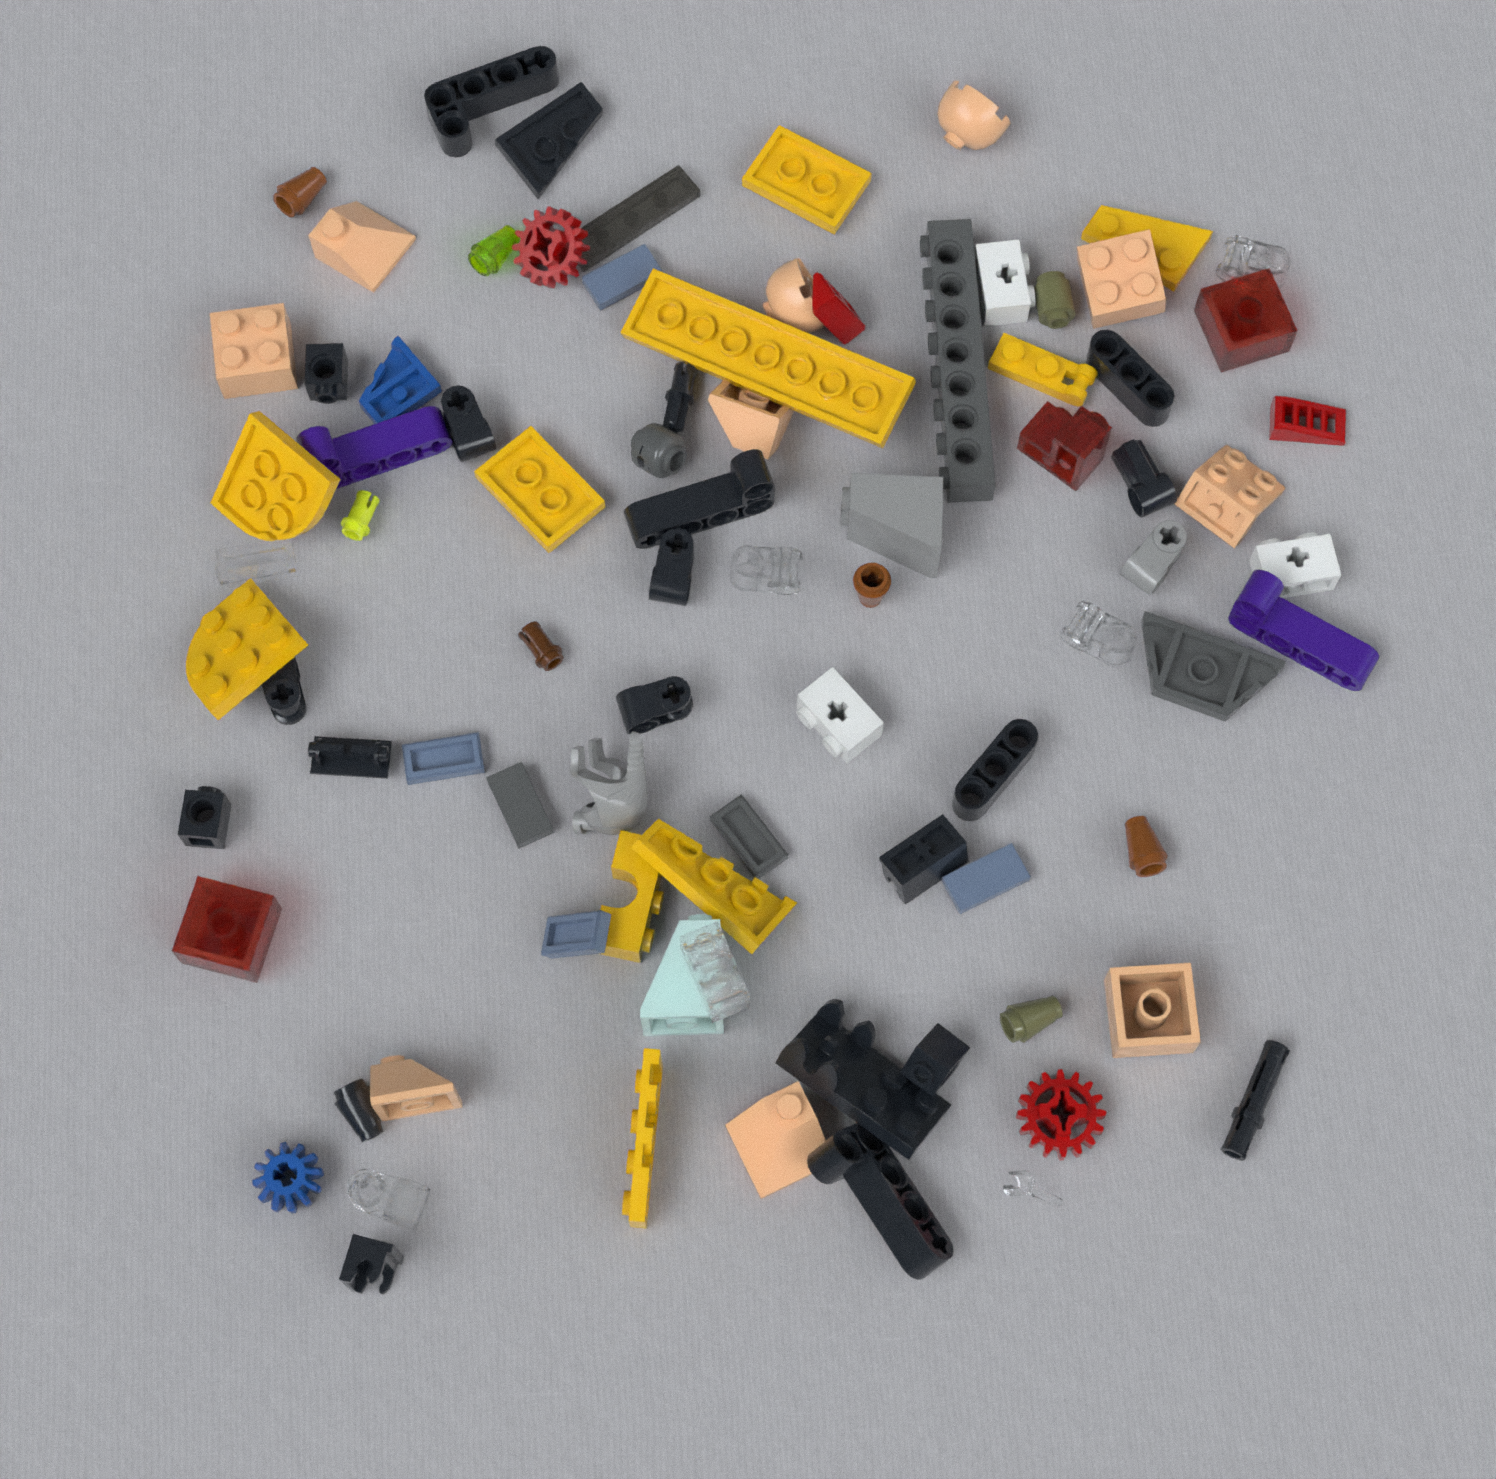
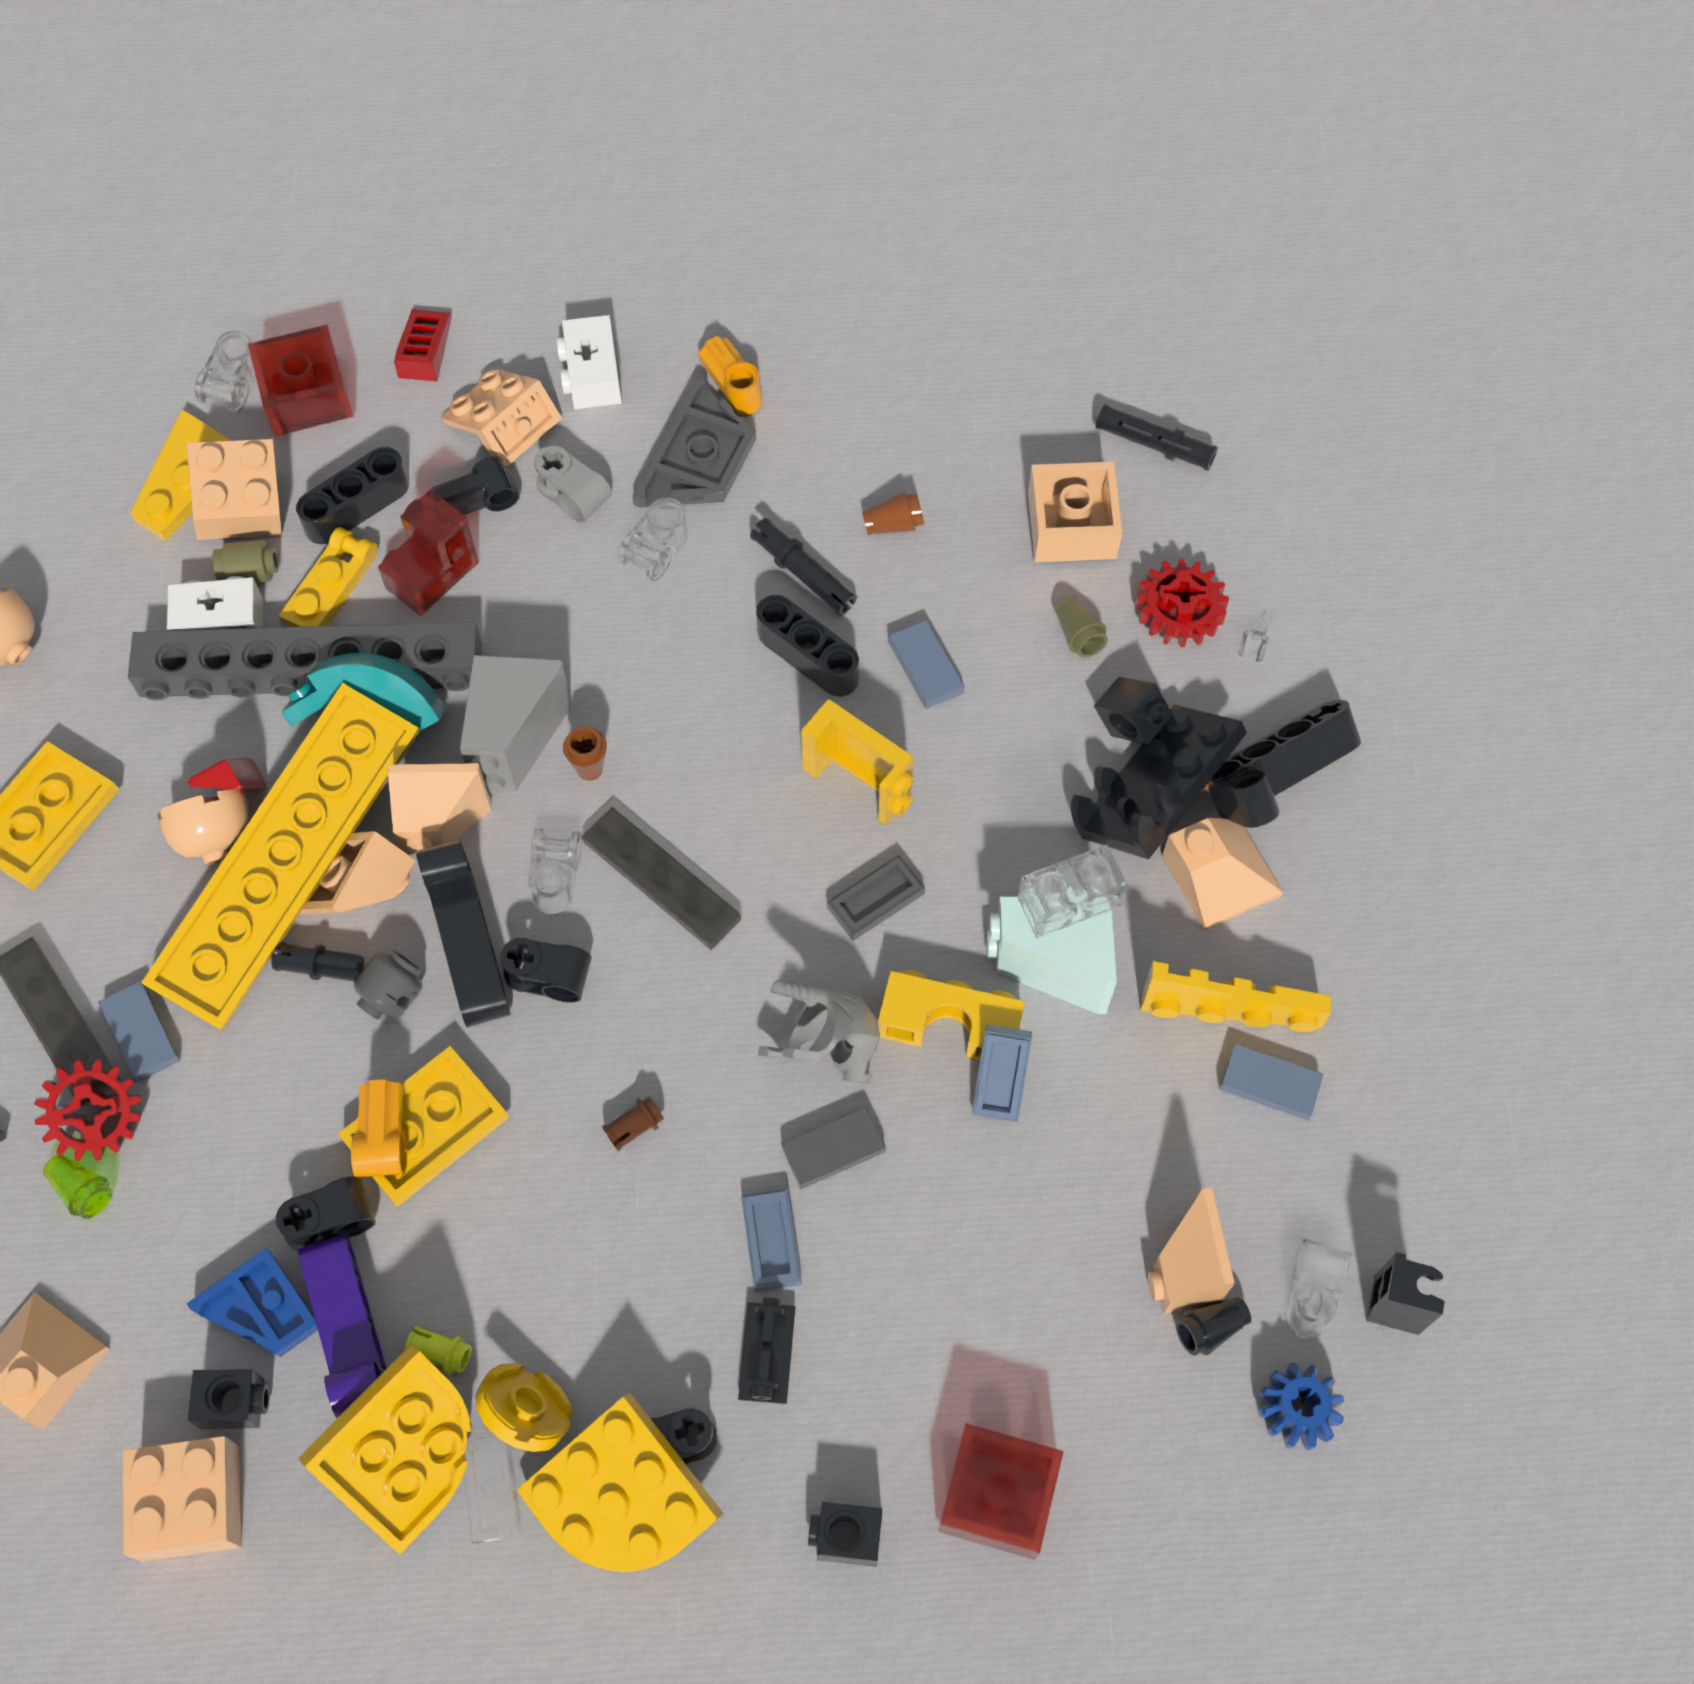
camera: 90 degrees left, 5 degrees down
(307, 575) = (523, 1407): none -> yellow tile
(515, 452) = (380, 1143): none -> light orange piece
(576, 1175) = (1271, 1081): none -> sand blue tile
(650, 704) = (717, 995): black piece -> none
(710, 883) = (946, 920): yellow wing -> none
(764, 659) = (661, 878): none -> clear smoke tile
(813, 467) = (435, 802): none -> light nougat slope
(835, 696) = (738, 796): white brick -> none
(892, 786) = (861, 751): none -> yellow panel
(924, 858) = (907, 714): black hinge -> none
(927, 410) = (373, 676): none -> teal arch
(1093, 753) = (789, 555): none -> black pin
(1293, 694) = (733, 375): none -> light orange piece
(1299, 634) = (648, 385): dark purple beam -> none

